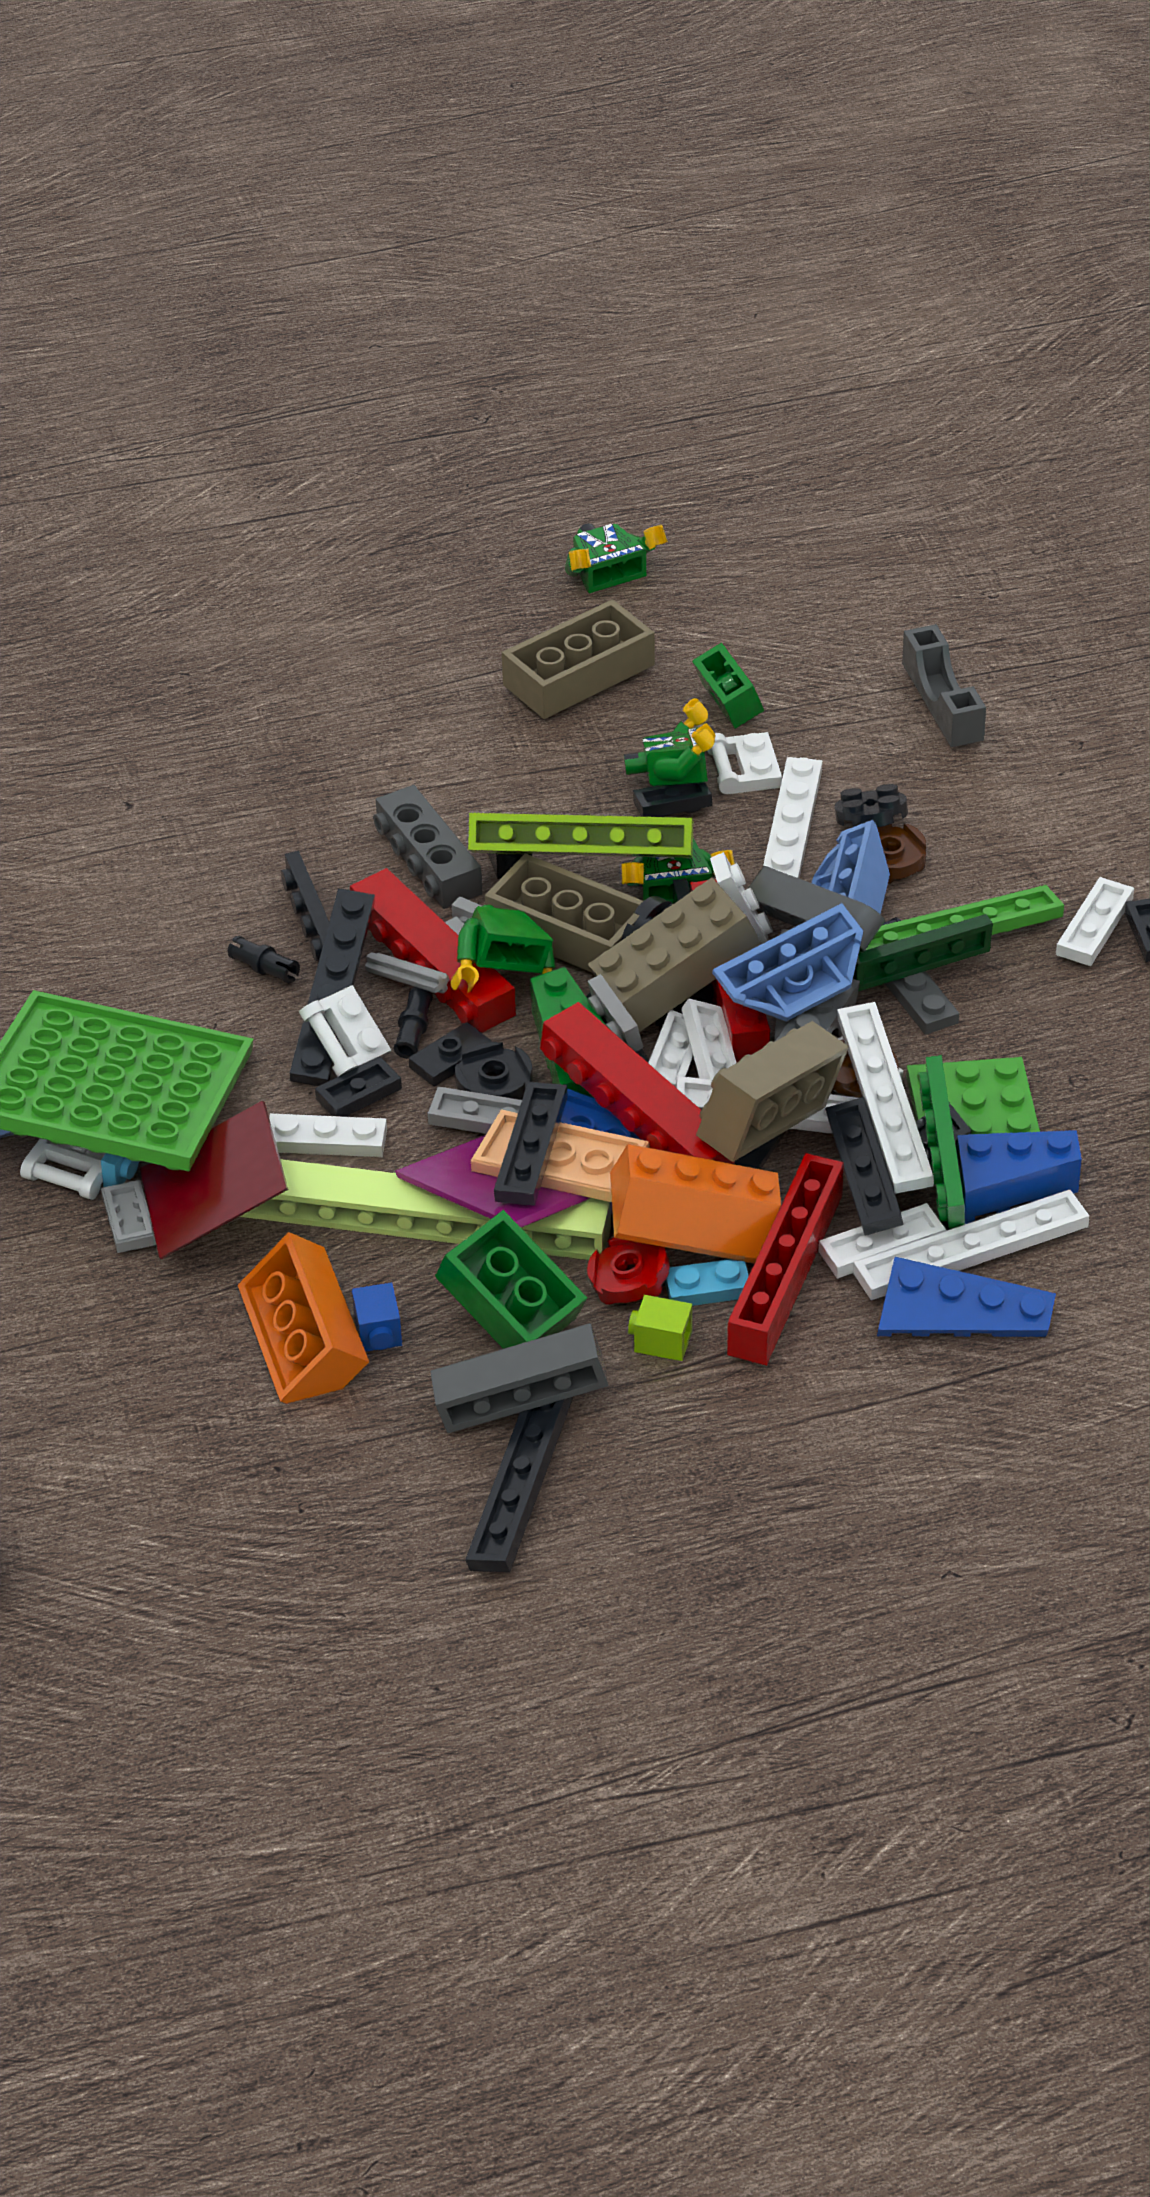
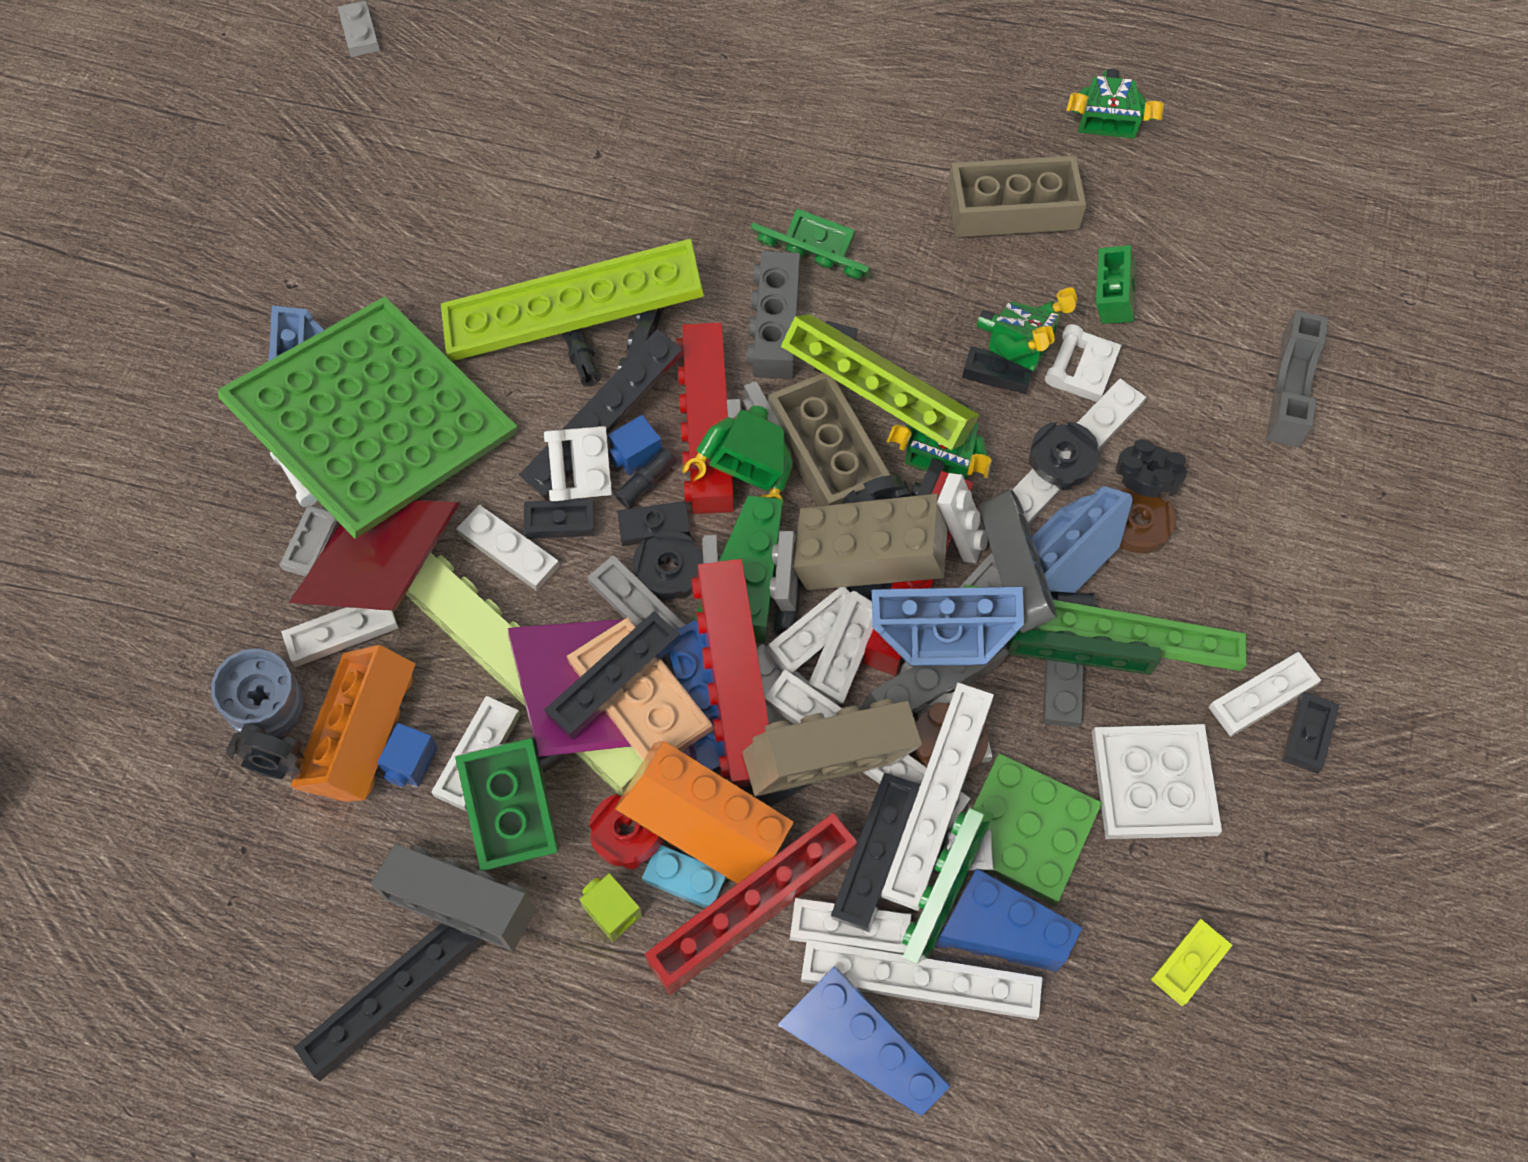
camera: 30 degrees right, 20 degrees up
(197, 1334) = (247, 680): none -> sand blue wheel
(221, 1265) = (335, 633): none -> white plate
(222, 914) = (571, 300): none -> lime plate
(241, 1352) = (266, 753): none -> black plate
(385, 998) = (633, 444): none -> blue brick
(407, 972) = (669, 431): light grey axle -> none
(425, 768) = (818, 239): none -> green bracket
(440, 1310) = (487, 729): none -> white plate
(530, 1043) = (709, 549): none -> light grey tile
(772, 834) = (1060, 471): none -> black plate
(1054, 1021) = (1155, 782): none -> white plate

